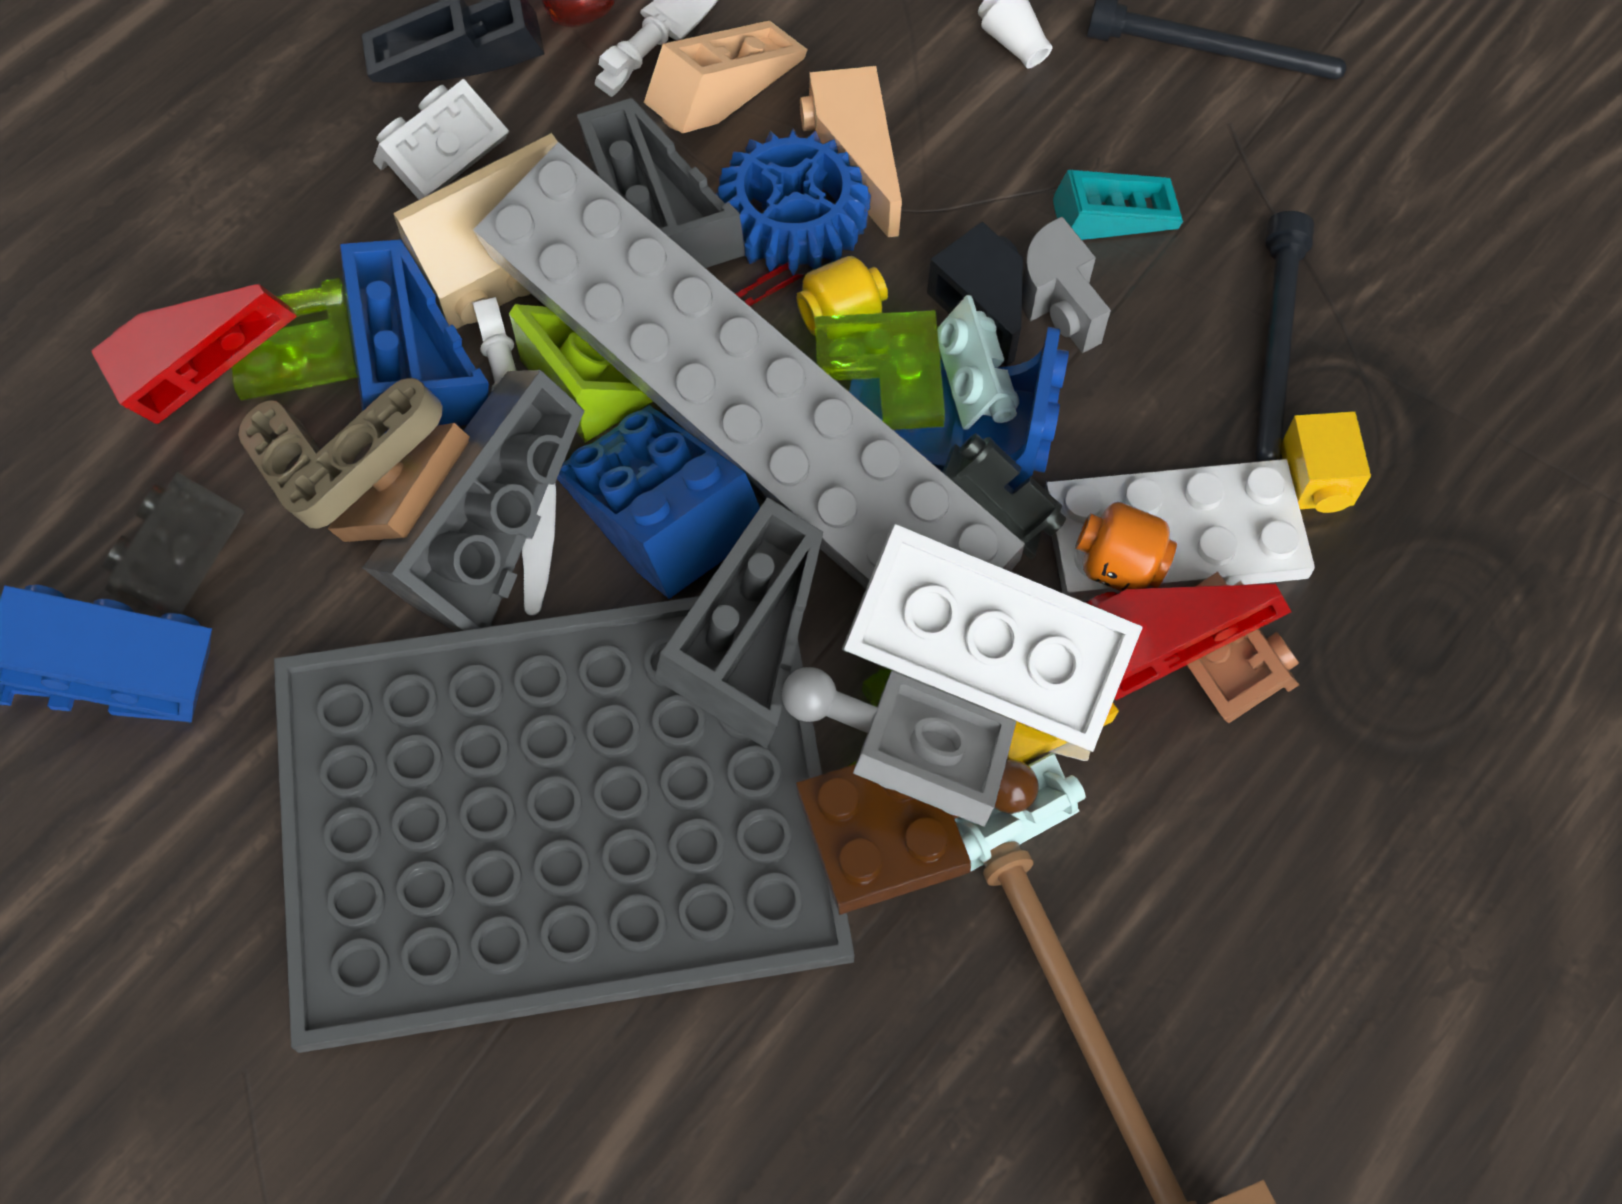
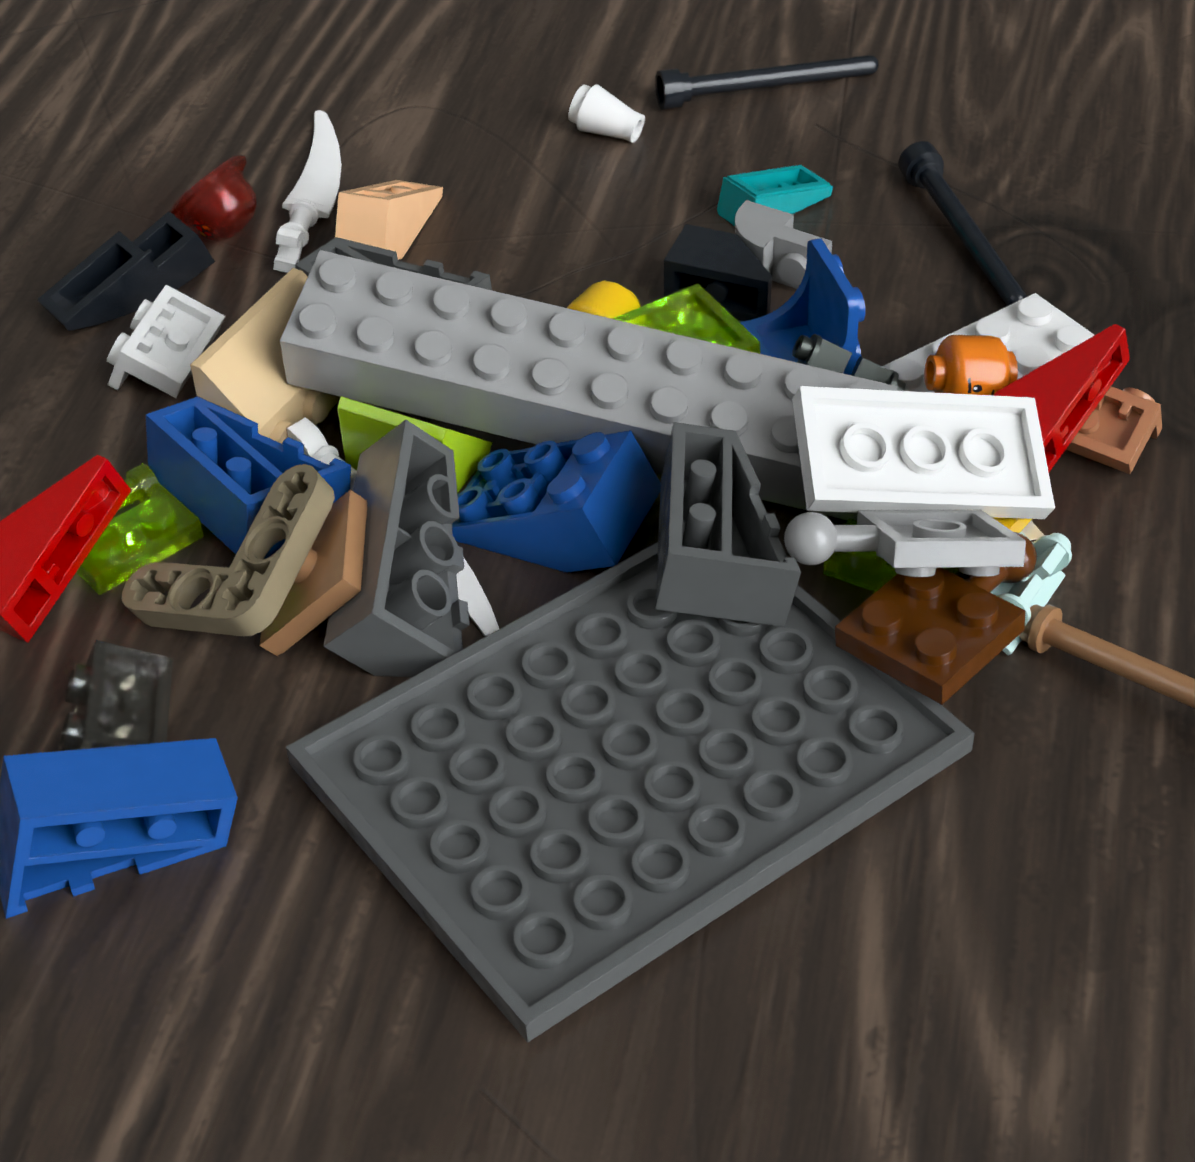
camera: 25 degrees left, 20 degrees down
(797, 218) = (521, 260): blue gear -> none
(851, 110) = (537, 223): light nougat slope -> none
(969, 357) = (759, 308): light aqua hinge -> none
(1326, 460) = (1067, 277): yellow brick -> none

